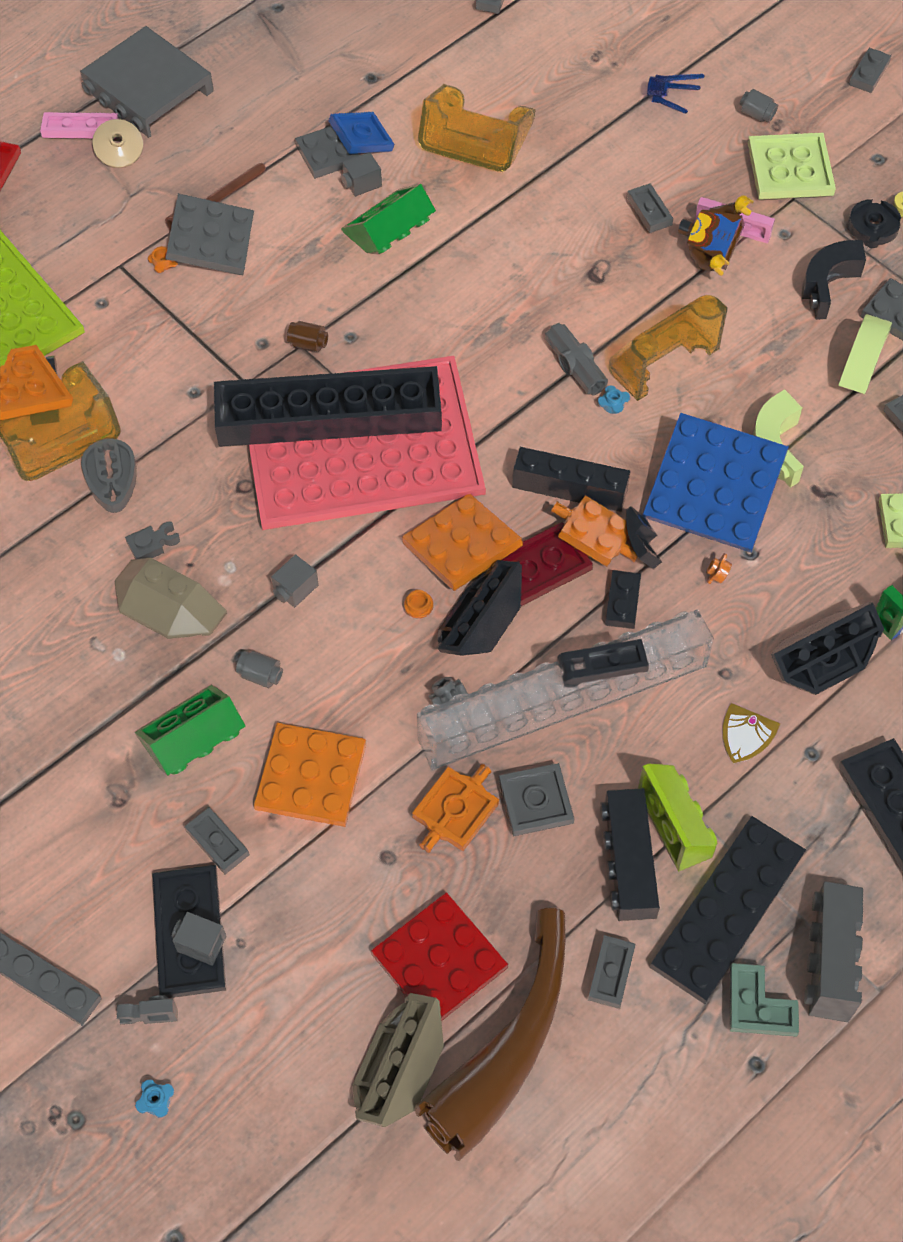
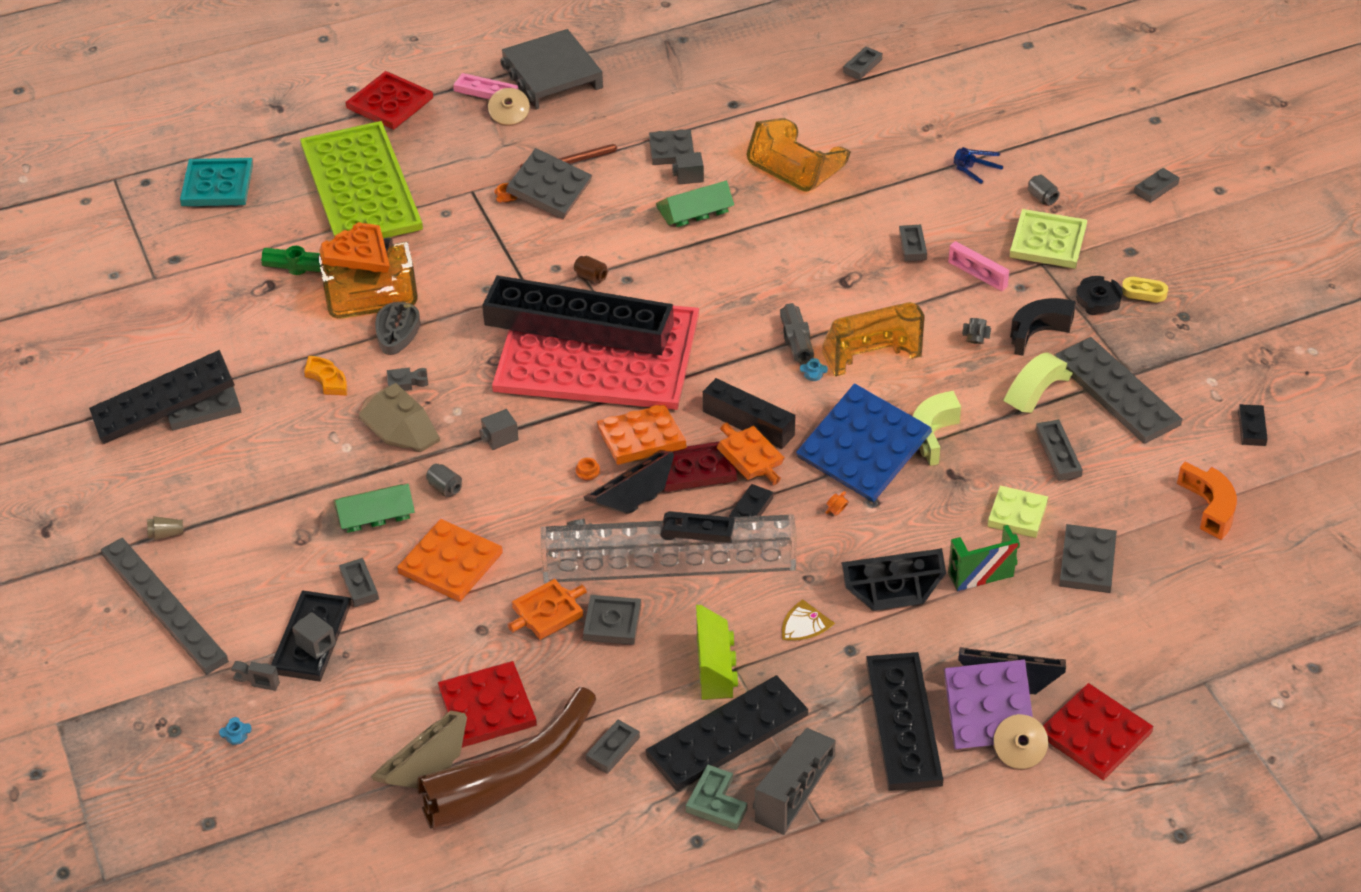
camera: 20 degrees right, 15 degrees down
(53, 561) = (327, 375): none -> light orange tile
(361, 132) = (703, 139): blue tile -> none
(631, 855) = (666, 674): black brick -> none
(641, 535) = (784, 466): black slope -> none
(715, 234) = (954, 270): torso -> none
(770, 303) = (976, 330): none -> dark grey gear

